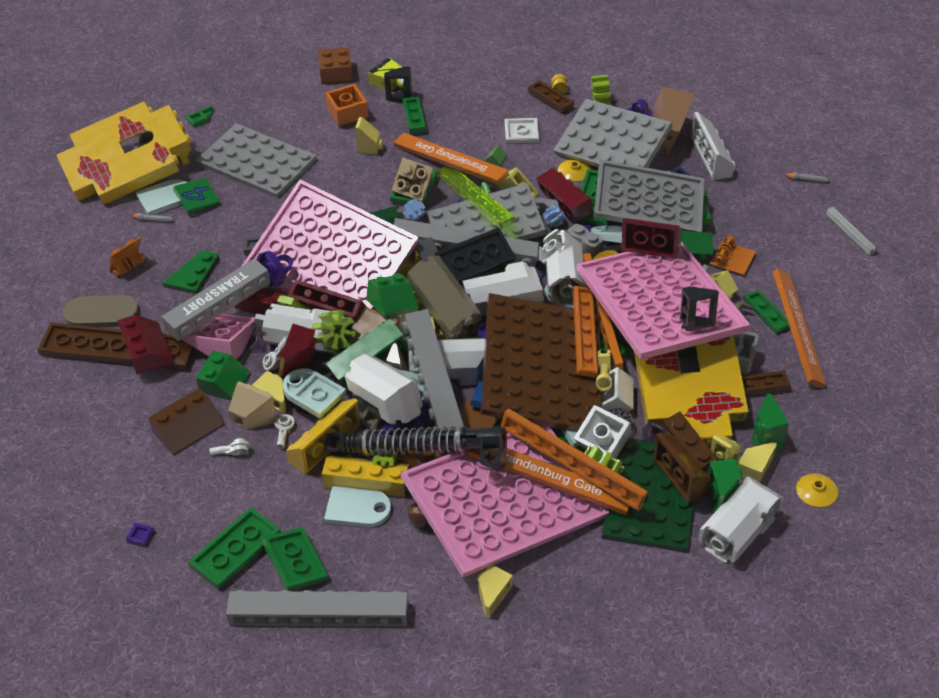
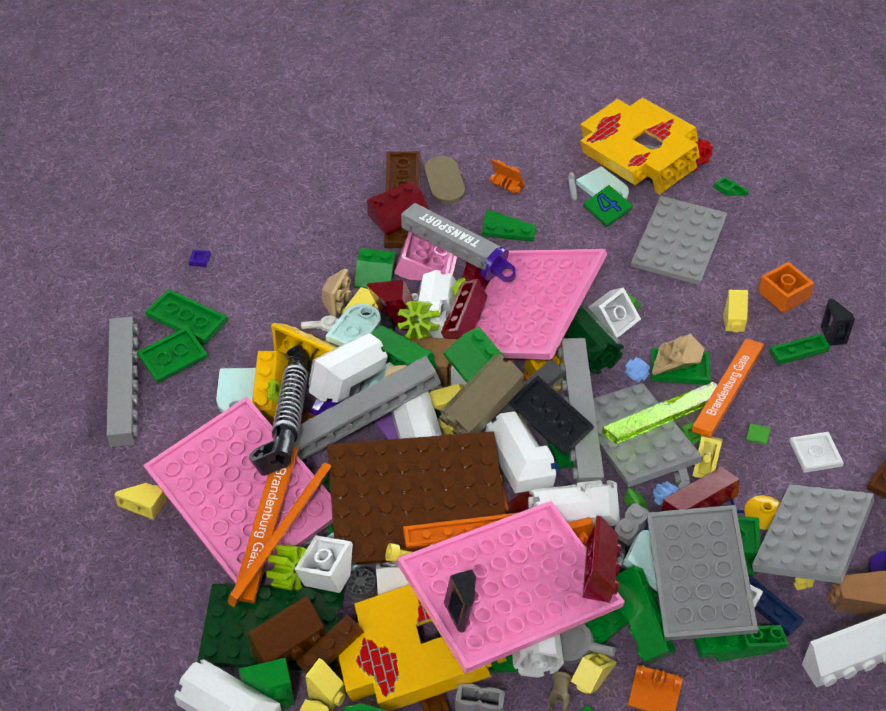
camera: 80 degrees right, 0 degrees up
(185, 421) = (318, 256): reddish brown slope -> none
(238, 447) = (295, 296): white plate -> none
(335, 65) = (852, 268): dark orange brick -> none
(376, 75) = (864, 313): neon yellow torso -> none

